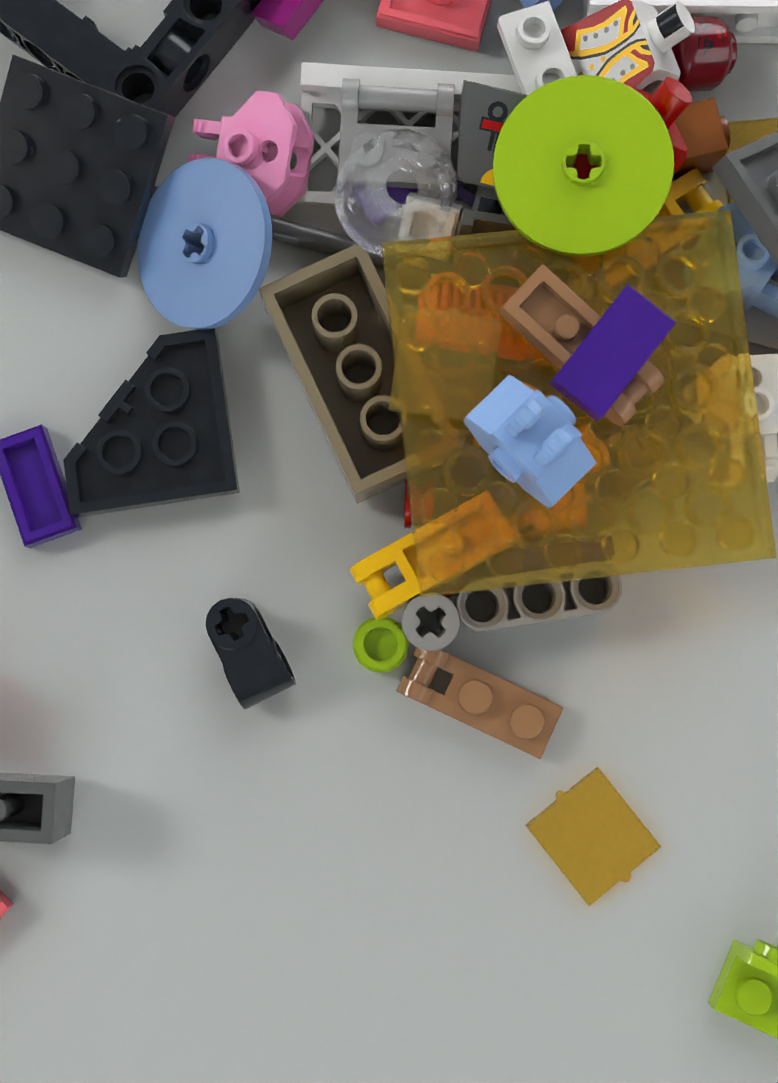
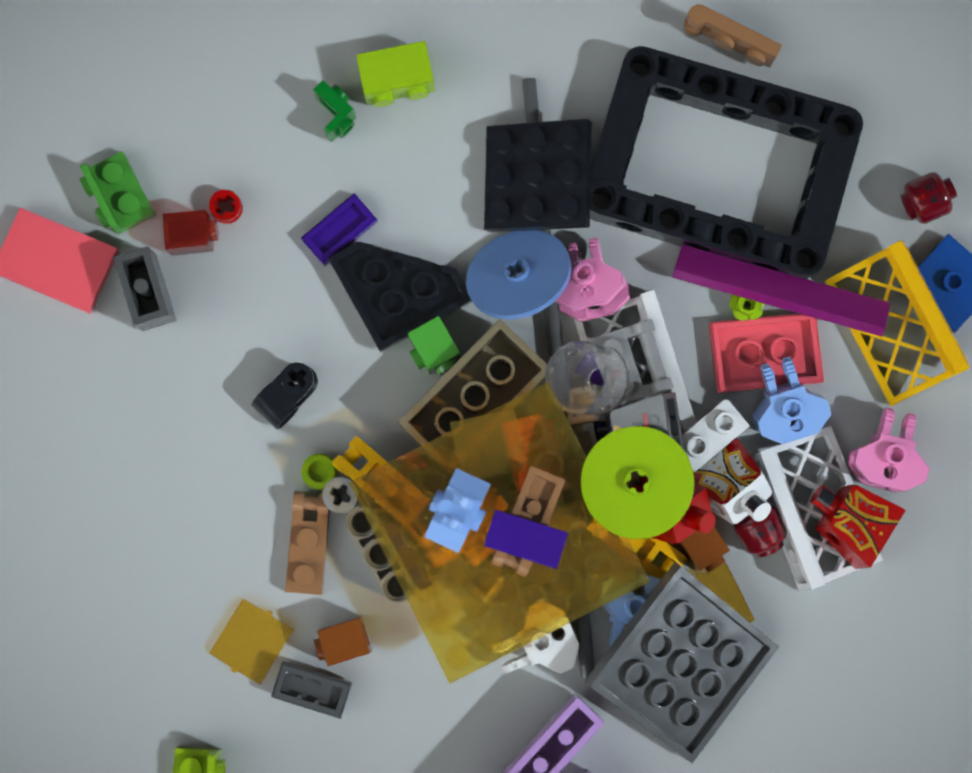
camera: 65 degrees right, 0 degrees up
(262, 409) = (433, 347): none -> bright green brick
(645, 700) = (342, 641): none -> dark orange brick
(697, 771) = (311, 689): none -> dark grey plate

